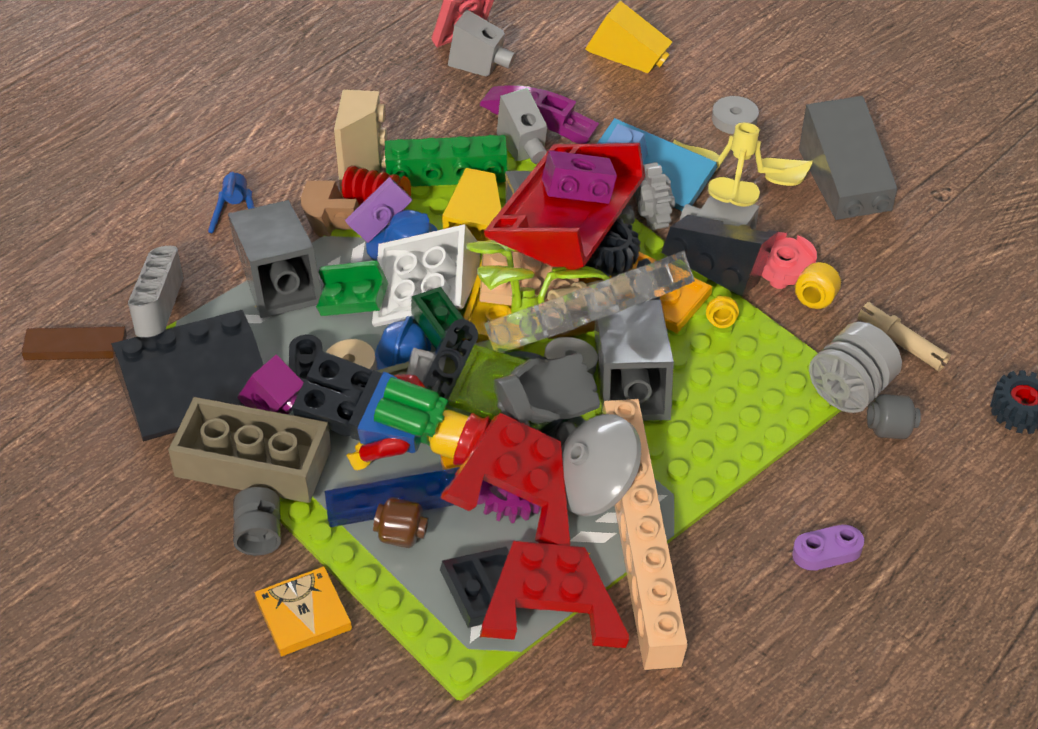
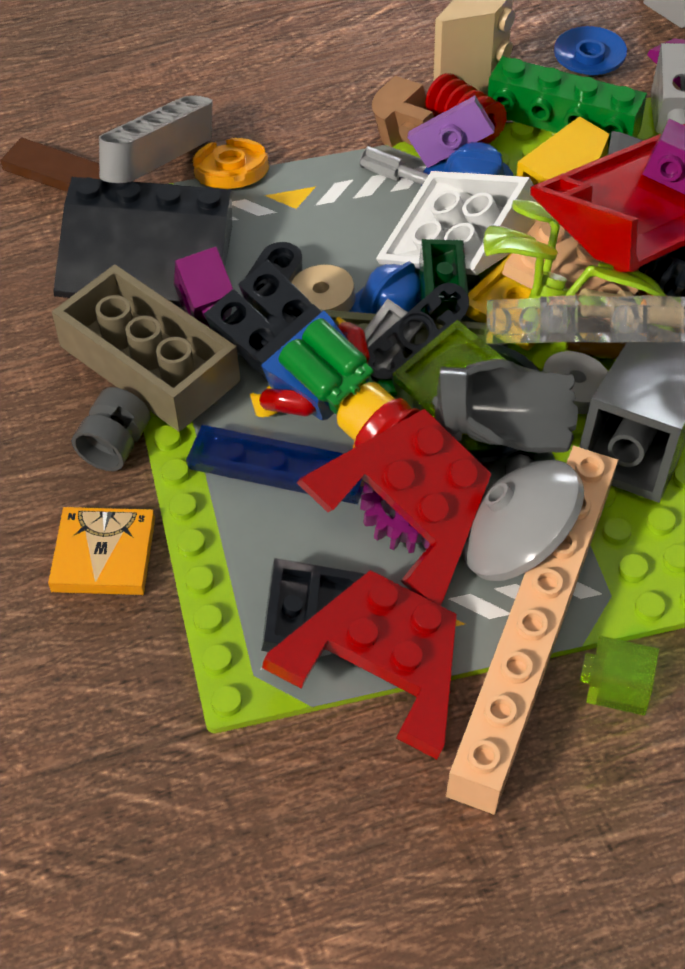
camera: 30 degrees right, 5 degrees up
(214, 291) = (231, 165): none -> light orange tile
(233, 191) = (316, 65): blue plant -> none
(276, 258) = (309, 149): dark grey slope -> none
(342, 251) = (389, 166): none -> light grey axle
(352, 288) = (373, 210): green bracket -> none
(400, 522) = (258, 494): reddish brown head -> none
(435, 114) = (590, 50): none -> blue dish
(712, 541) = (620, 675): none -> clear neon green brick

